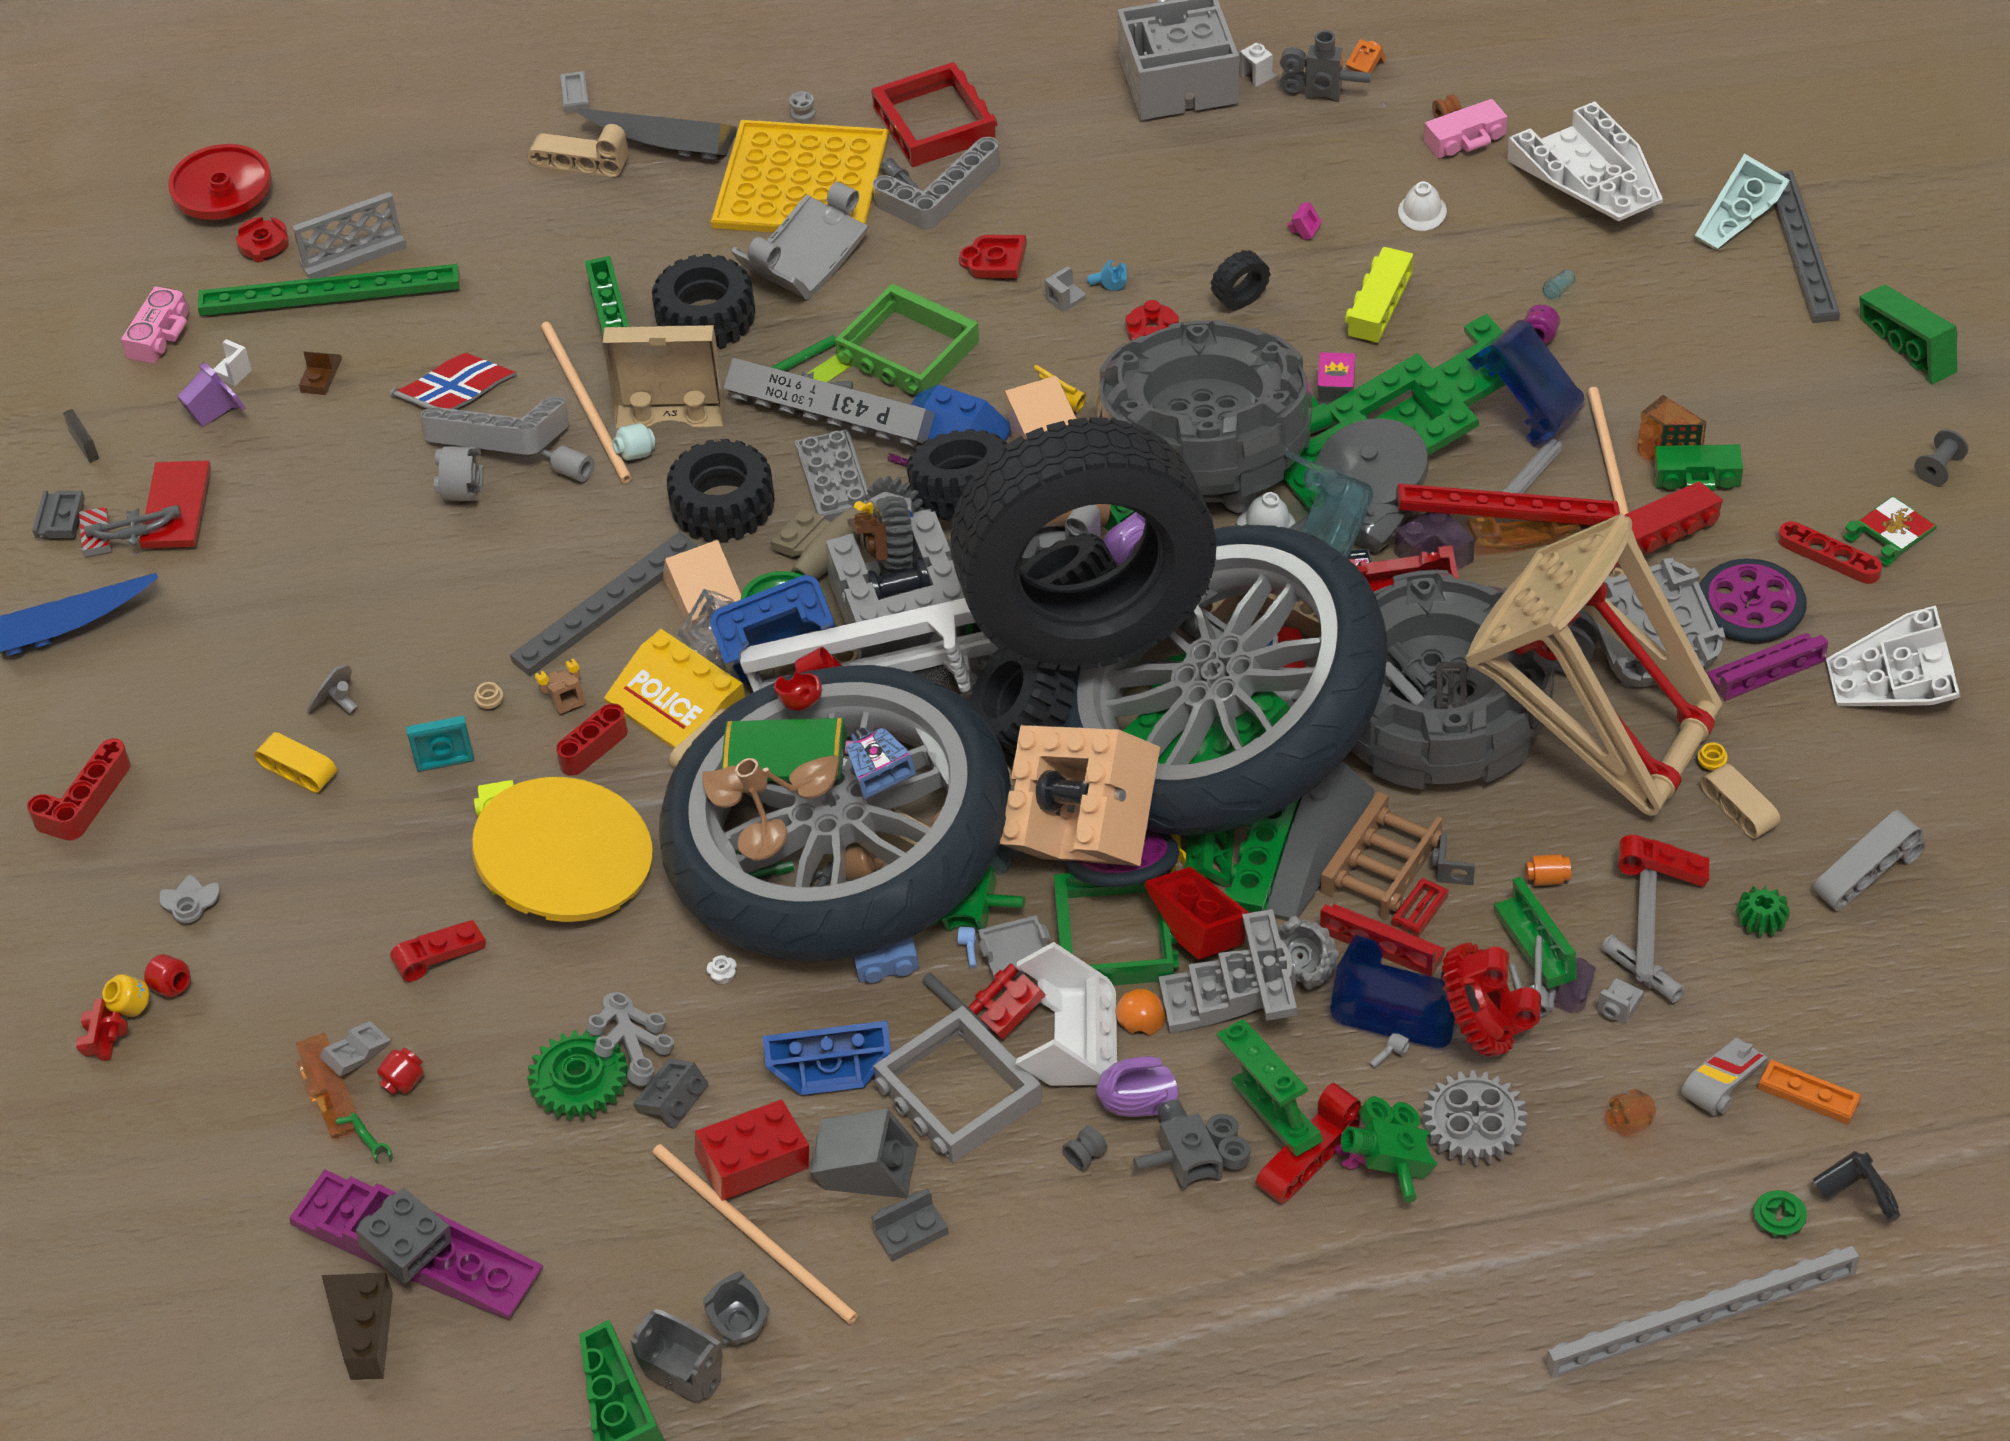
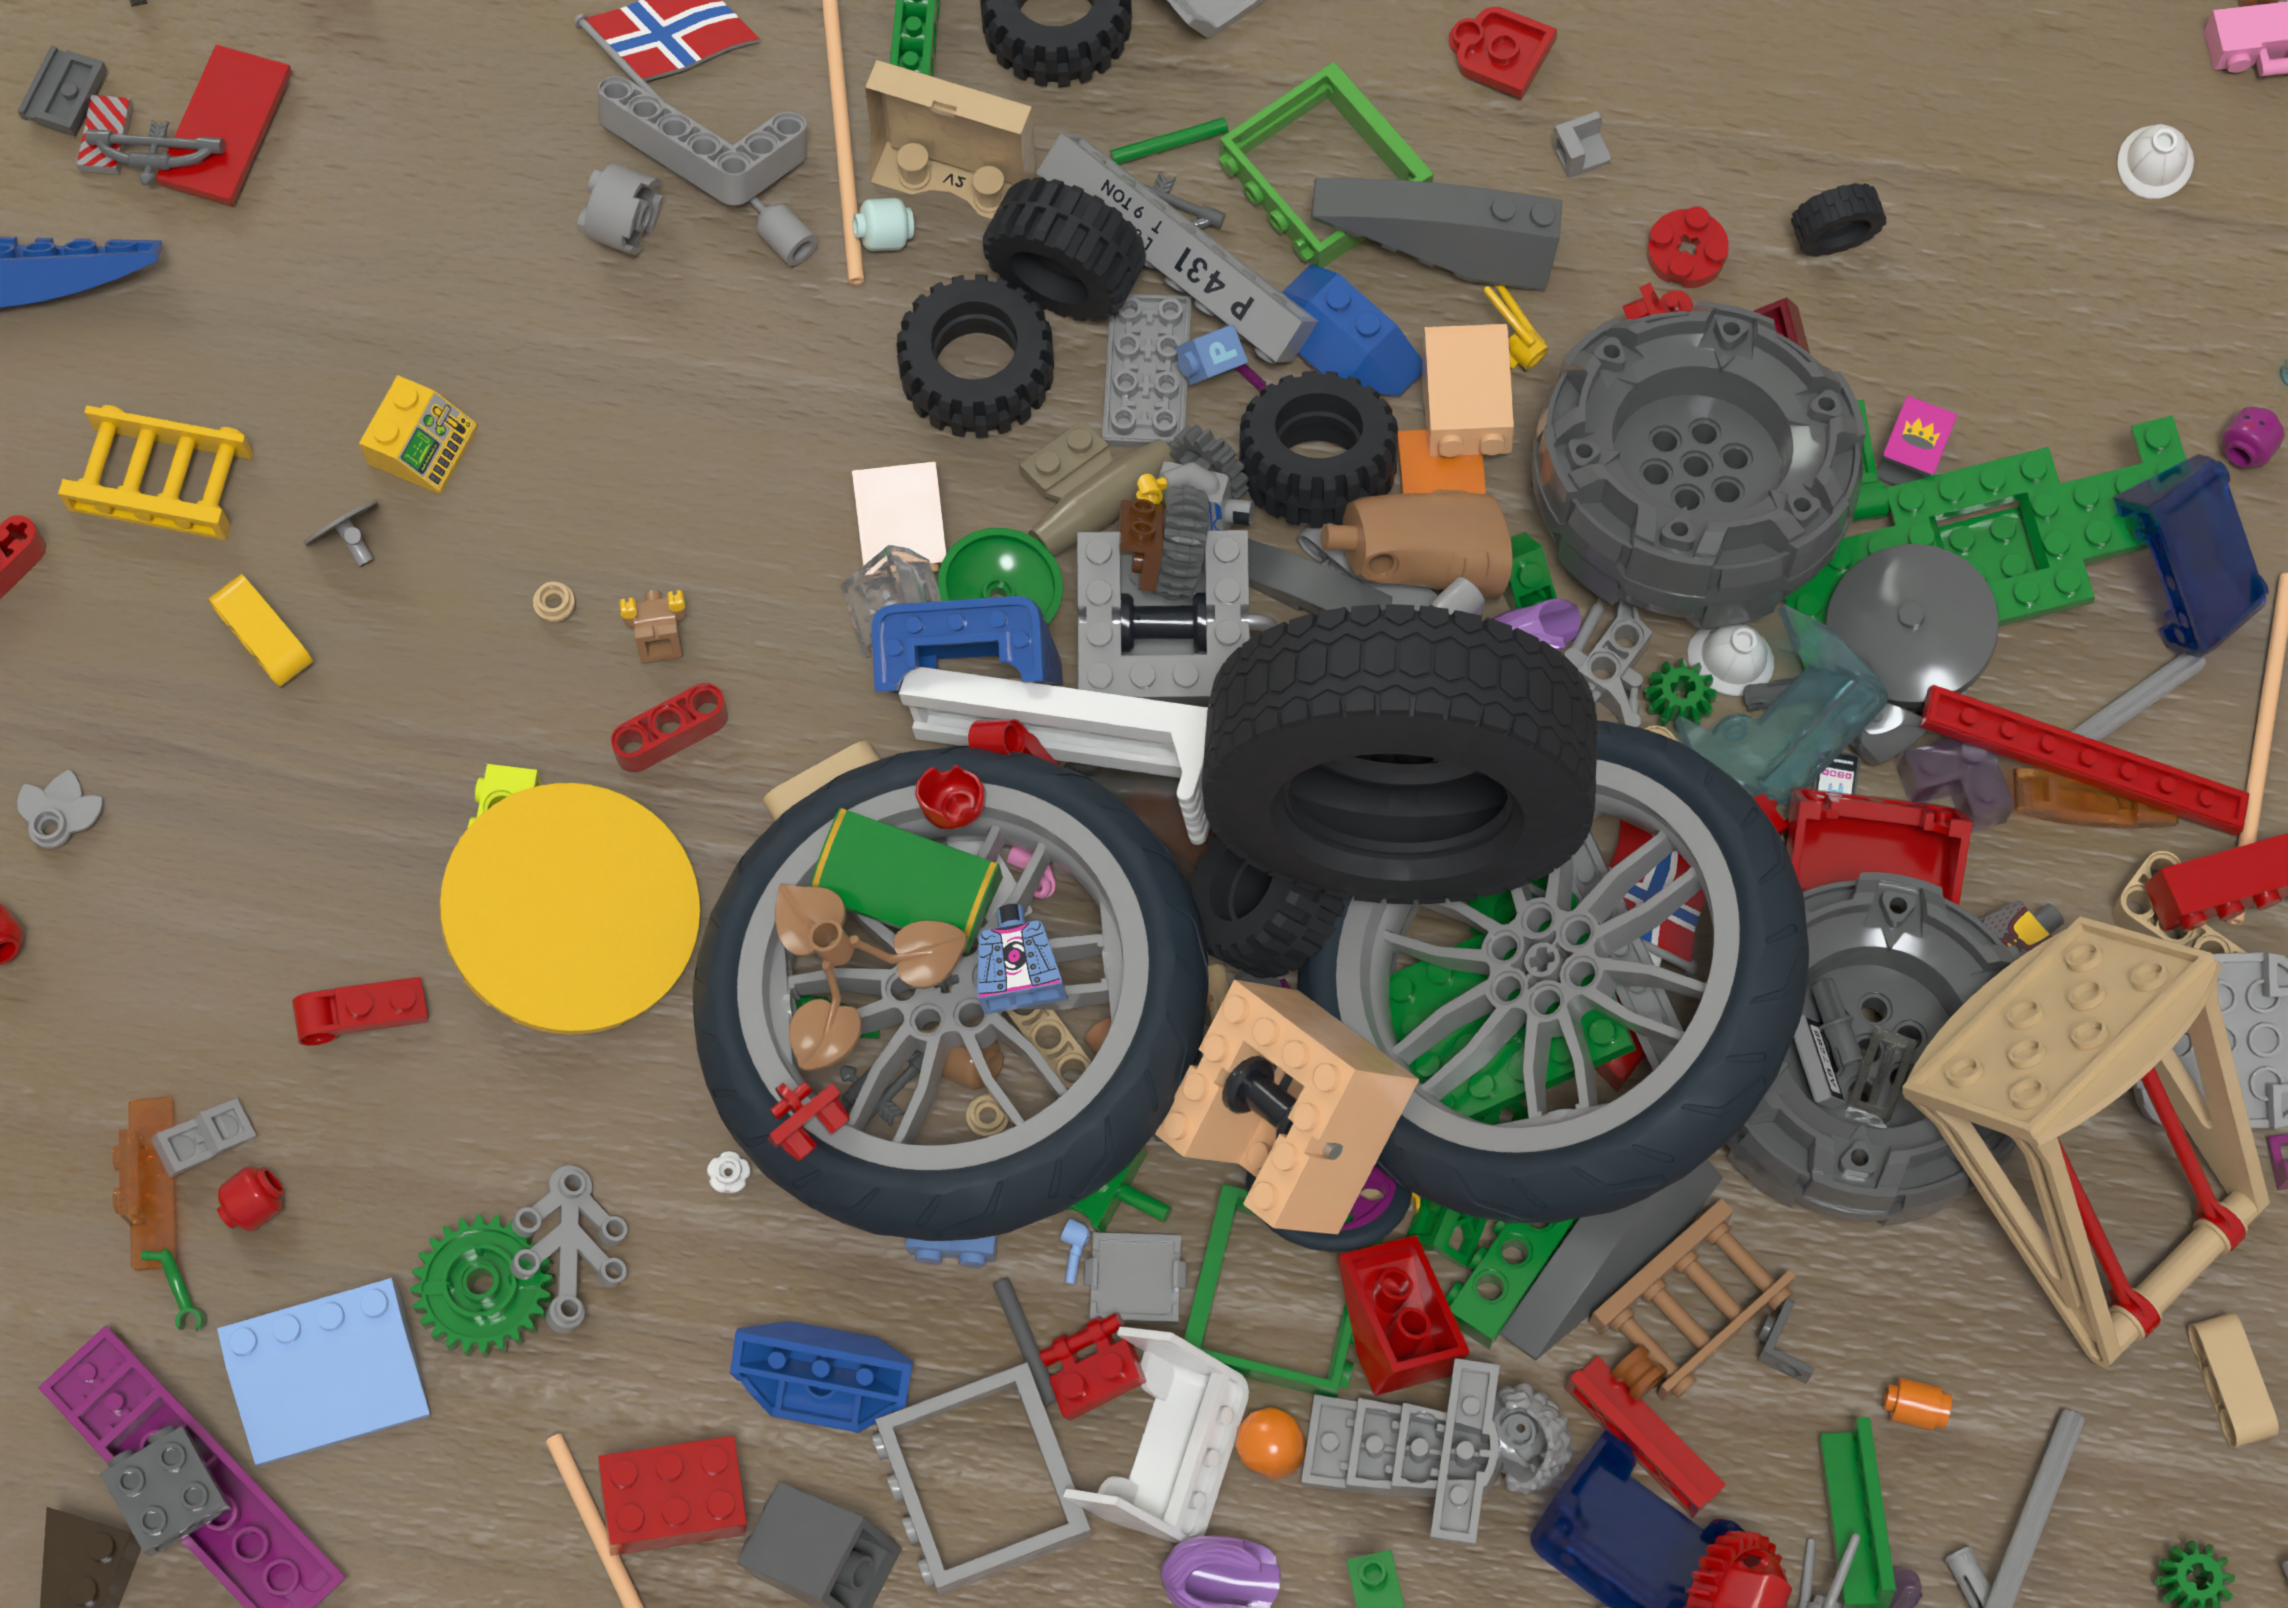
camera: 15 degrees right, 20 degrees up
(198, 717) = (166, 508): none -> yellow fence
(364, 631) = (417, 435): none -> yellow slope
(440, 743) = (458, 674): teal tile -> none
(485, 1152) = (324, 1371): none -> light blue slope
(598, 607) = (760, 492): dark grey plate -> none
(672, 689) = (804, 683): yellow slope -> none
(672, 1091) = (598, 1354): dark grey bracket -> none
(763, 880) = (823, 1107): none -> red hips
(765, 389) = (1064, 248): none -> black tyre
(829, 369) = (1197, 176): lime sticker -> none
(872, 450) = (1210, 354): none -> medium blue brick
(999, 343) = (1461, 228): none -> dark grey wedge
(1111, 277) = (1657, 141): dark azure piece -> none
(1305, 221) = (1974, 131): dark pink tile -> none
(1364, 900) = (1639, 1372): none -> dark orange wheel
(1379, 294) = (2036, 306): neon yellow brick -> none
(1409, 924) = (1688, 1423): red tile -> none
(1639, 853) = (2060, 1432): red plate -> none
(1712, 756) = (2230, 1278): yellow plate -> none

